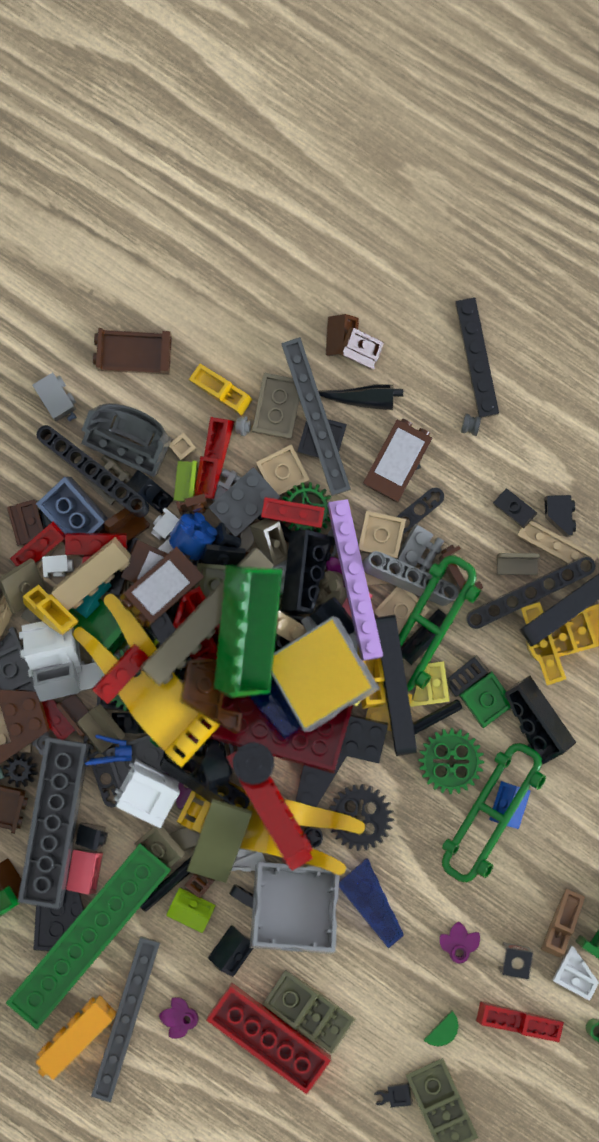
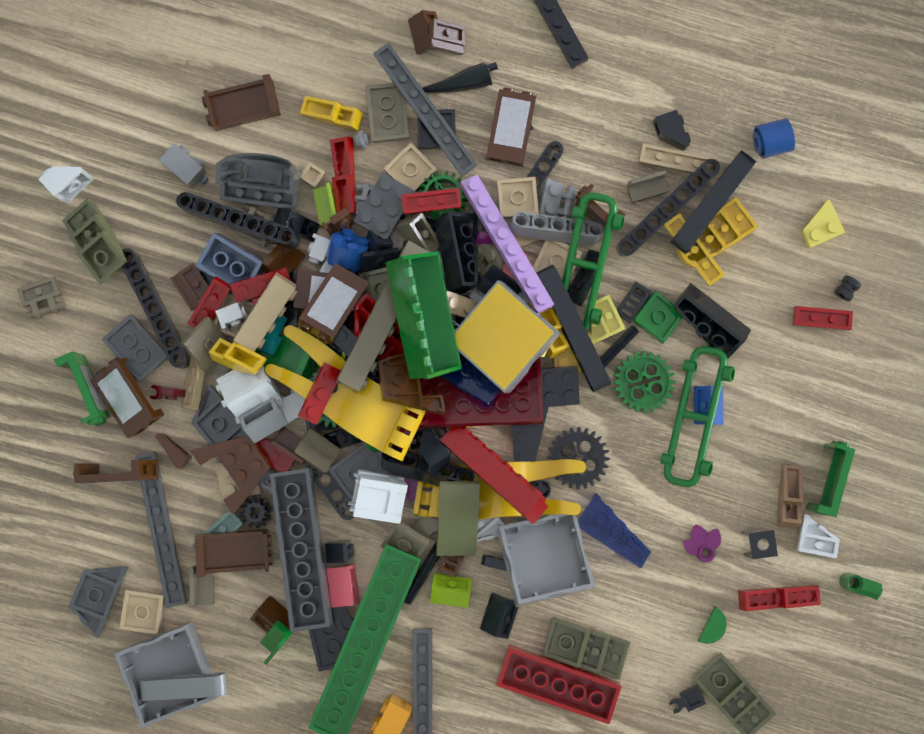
camera: 20 degrees left, 0 degrees up
(122, 753) = (344, 467): blue plant -> none
(175, 1018) = (467, 691): magenta plate -> none
(253, 763) = (467, 437): black tile -> none
(471, 424) = (566, 75): dark grey wheel -> none
(515, 508) = (629, 137): black plate -> none

